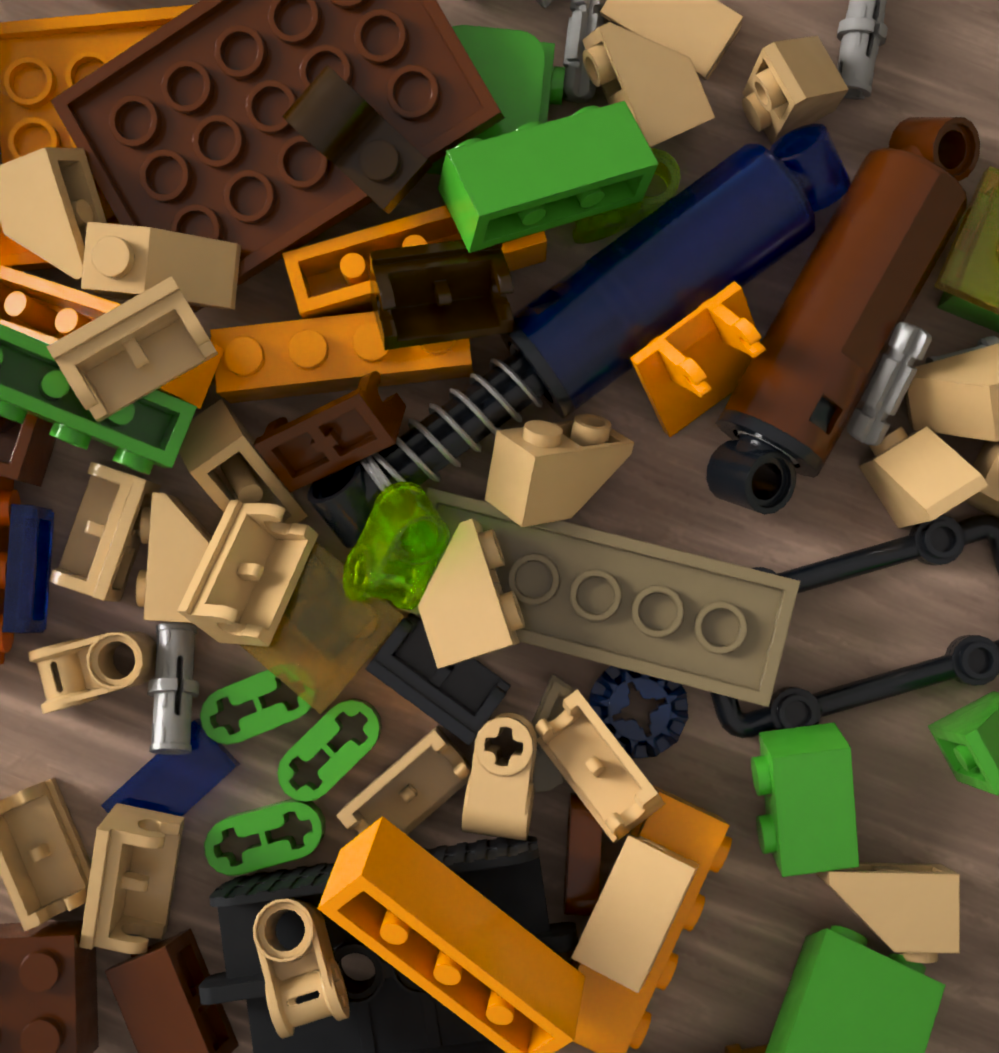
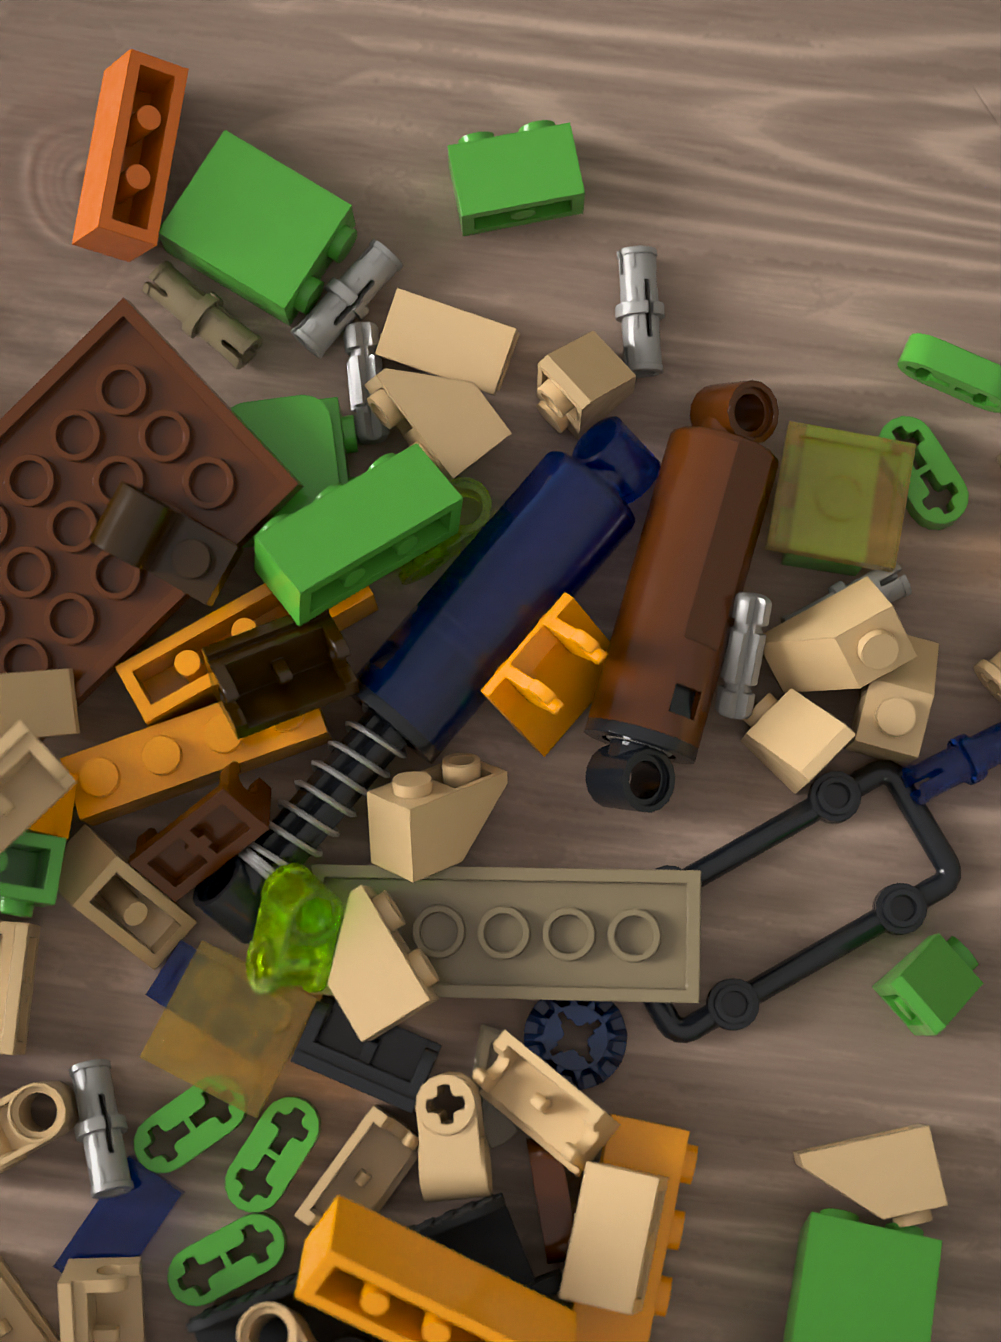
camera: 15 degrees left, 5 degrees down
(174, 553) = (88, 1004): tan slope -> none
(247, 574) = (151, 993): tan hinge -> none
(807, 799) = (762, 1088): bright green brick -> none

